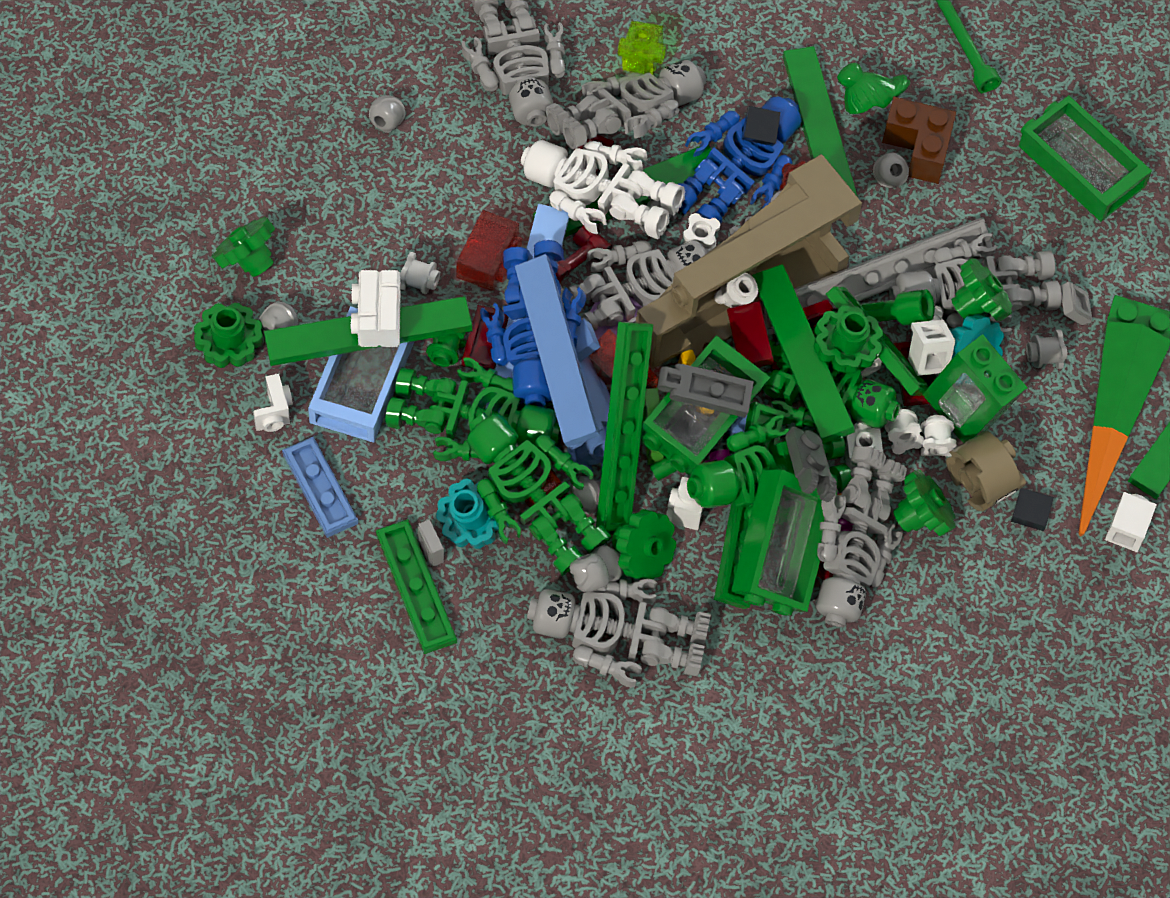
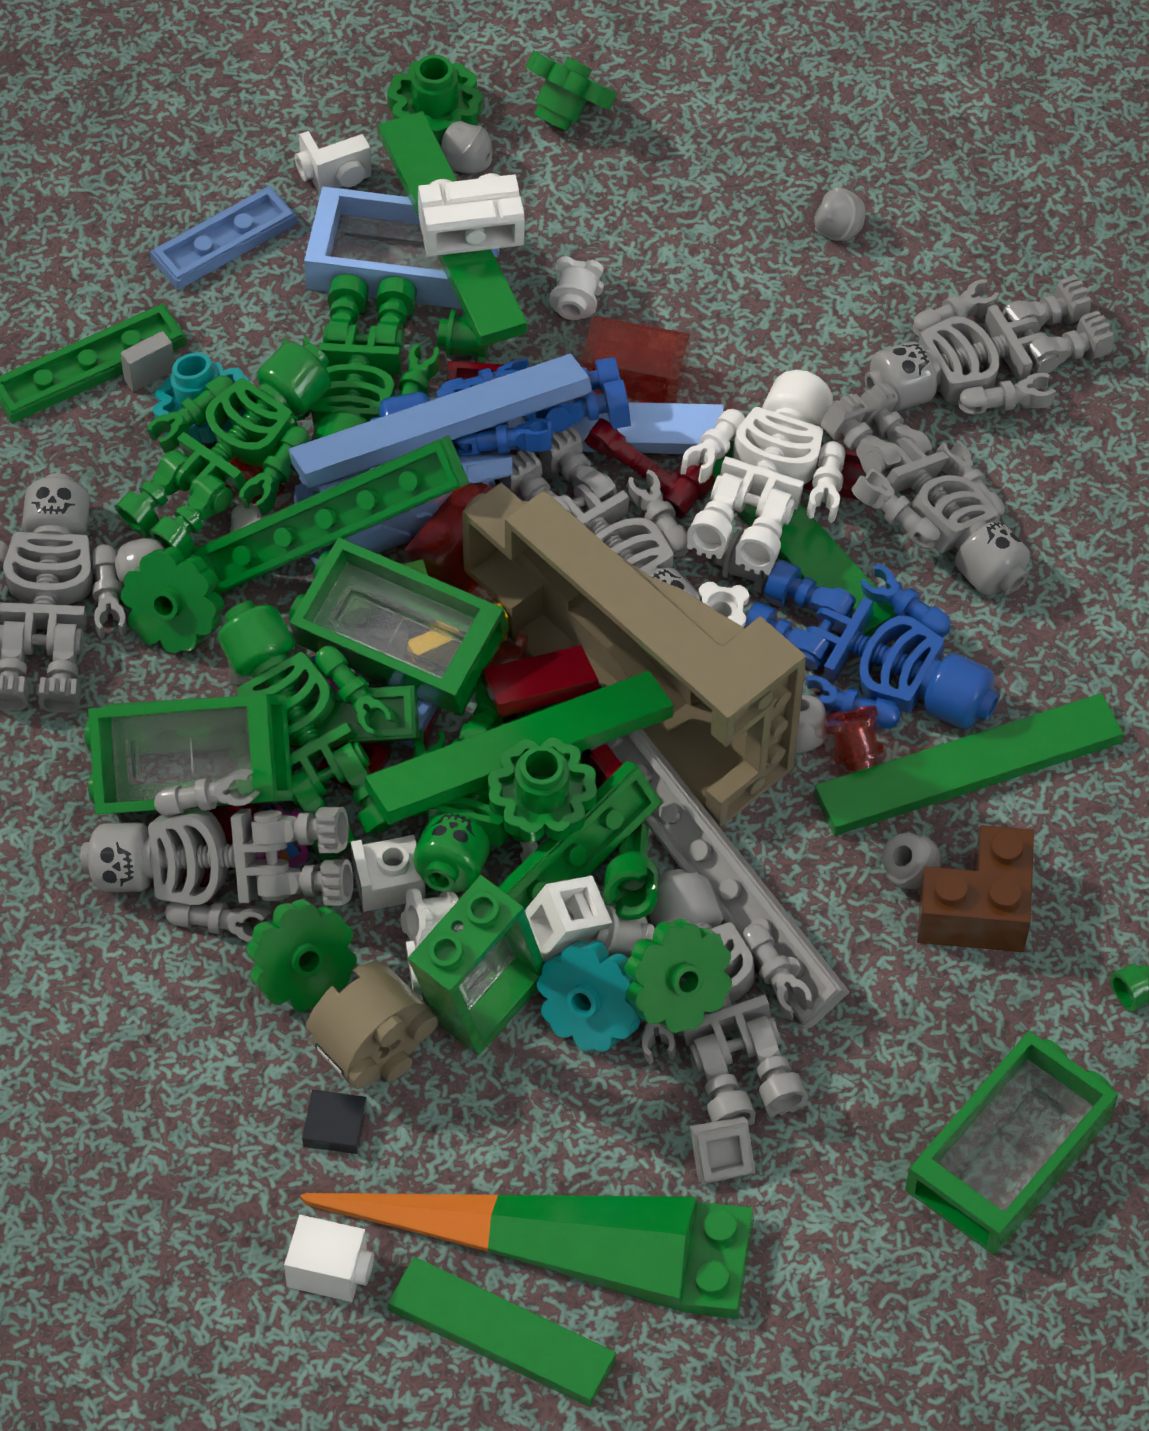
camera: 85 degrees right, 5 degrees down
(589, 573) = (108, 528): light grey piece -> none
(642, 48) = (1039, 498): clear neon green brick -> none
(706, 389) = (403, 604): dark grey hinge -> none
(737, 291) = (619, 665): white brick -> none
(761, 126) = (922, 651): black tile -> none
(810, 463) = (301, 746): dark grey hinge -> none
(868, 88) = (1051, 804): green hair -> none
(1047, 350) = (623, 1113): light grey brick -> none

